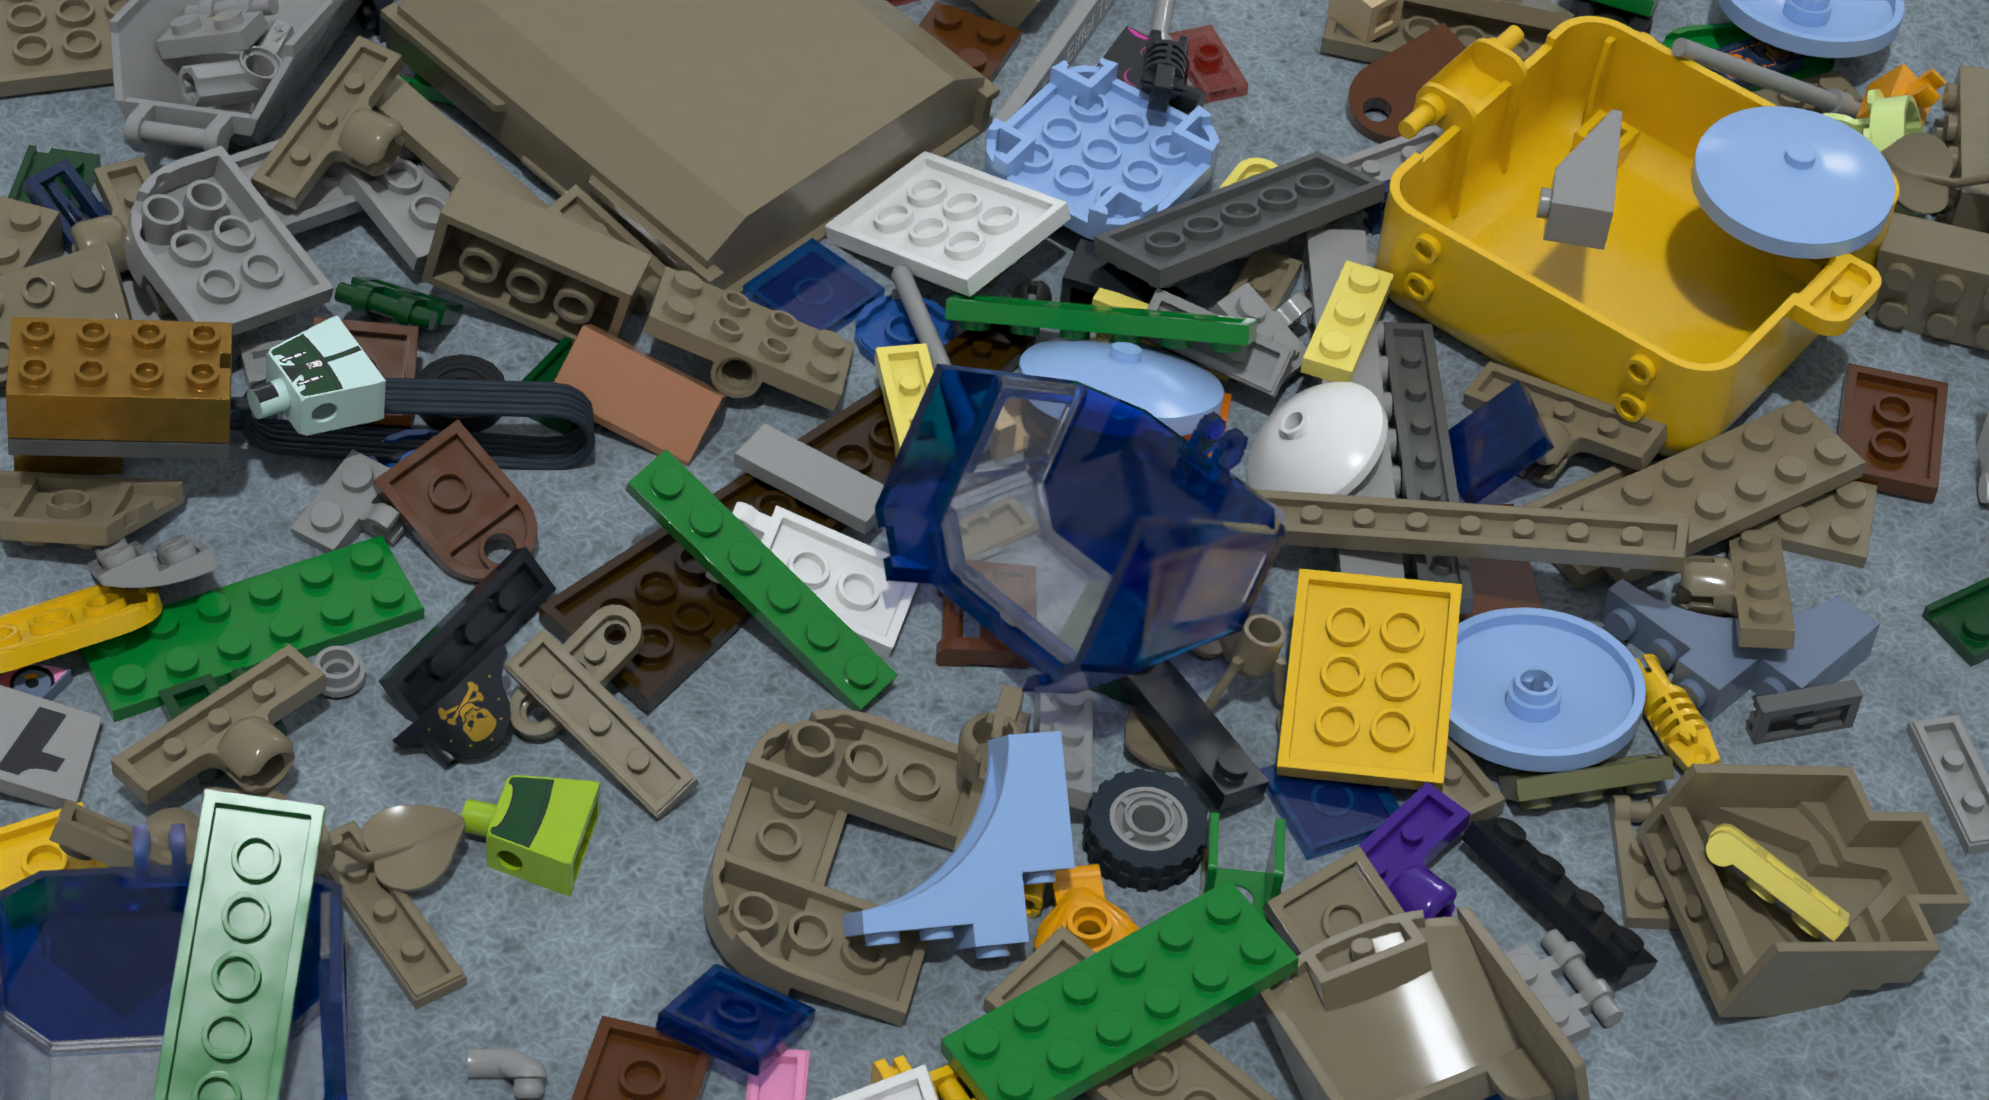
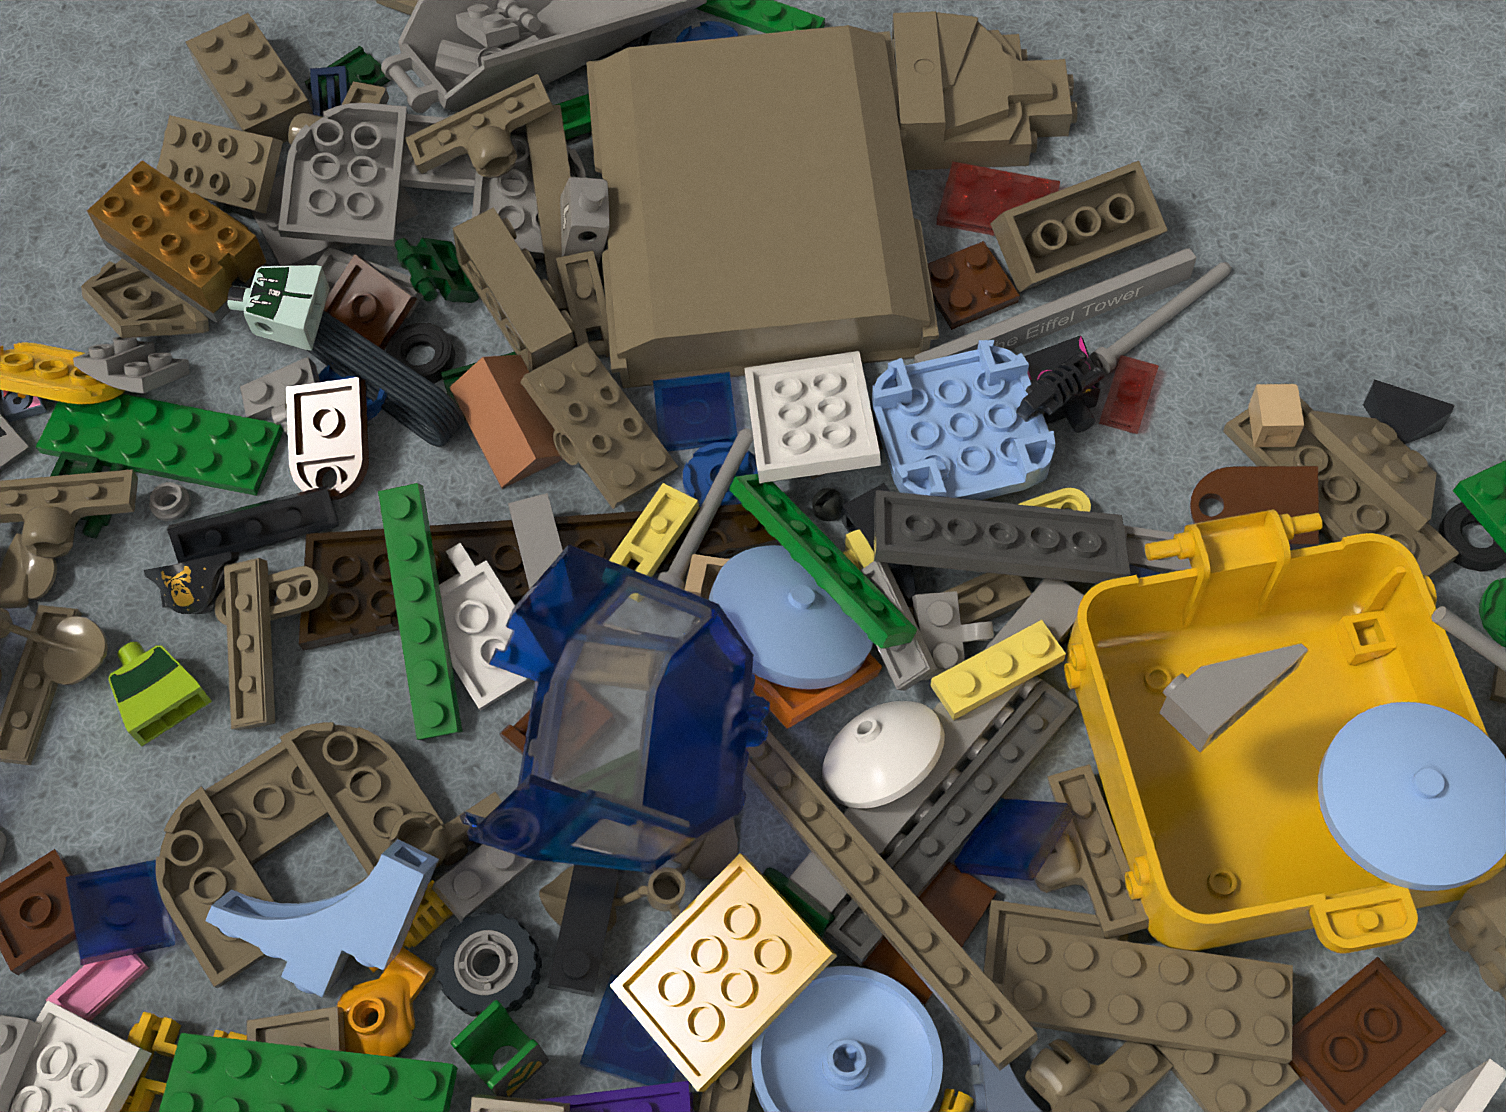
camera: 50 degrees right, 15 degrees up
(537, 151) = (582, 209): none -> light grey torso

